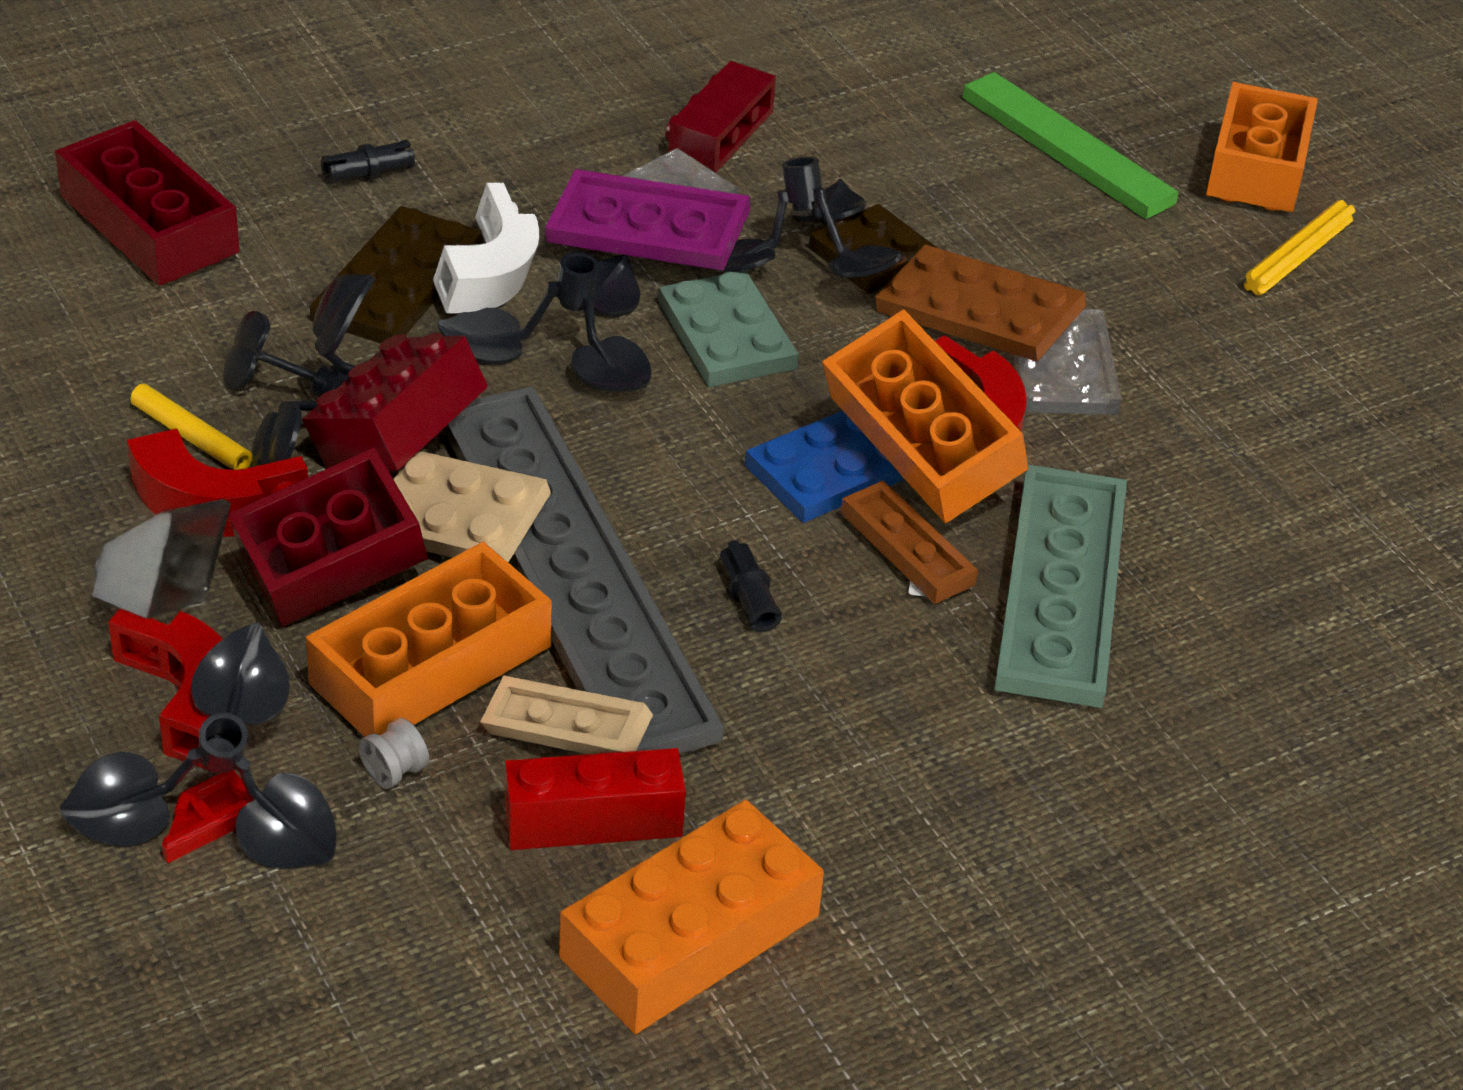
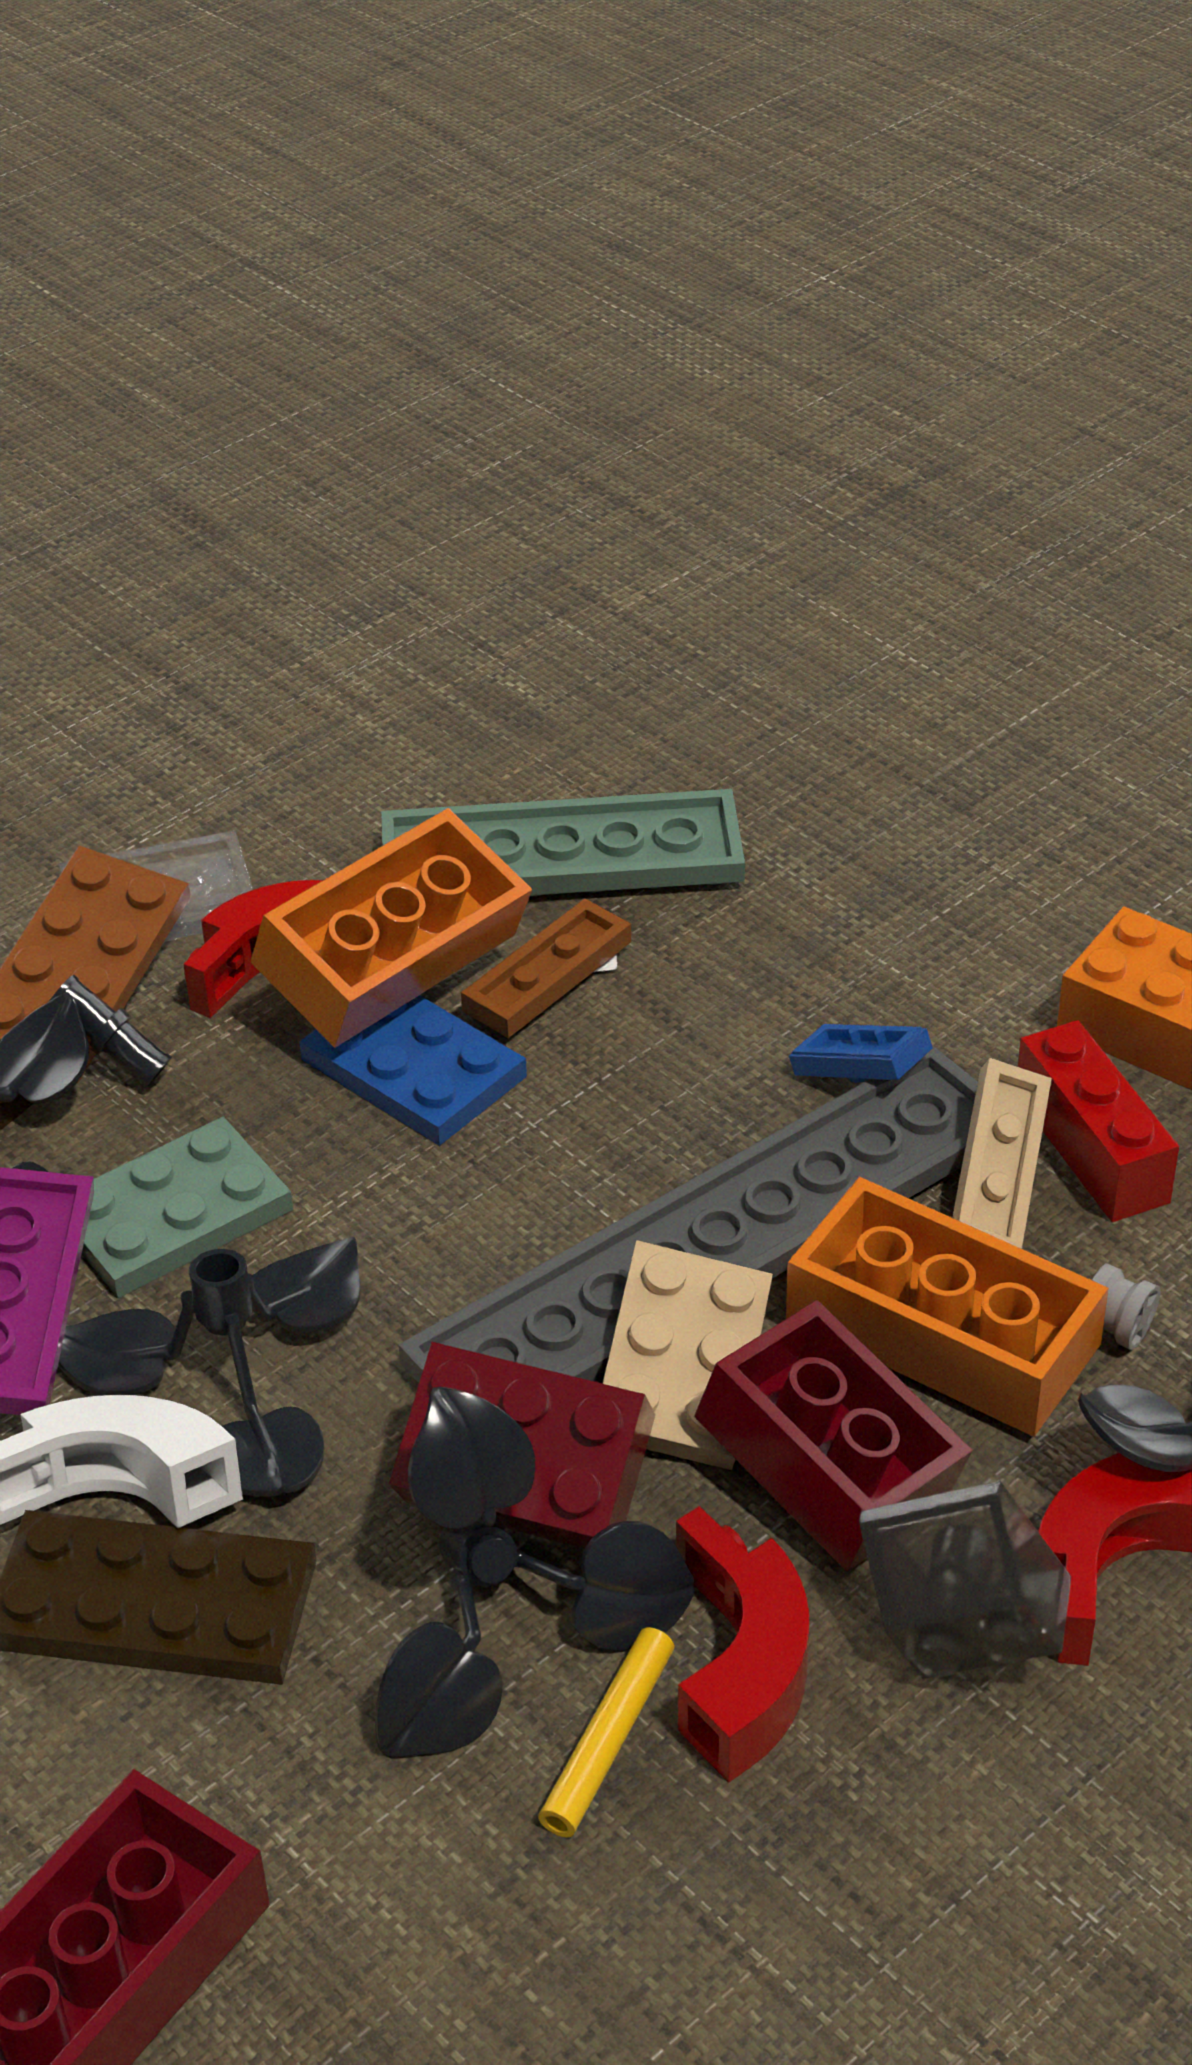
camera: 100 degrees left, 0 degrees up
(728, 680) = (860, 1052): none -> blue plate
(750, 587) = (678, 1081): black axle -> none
(893, 296) = (114, 1034): none -> black pin

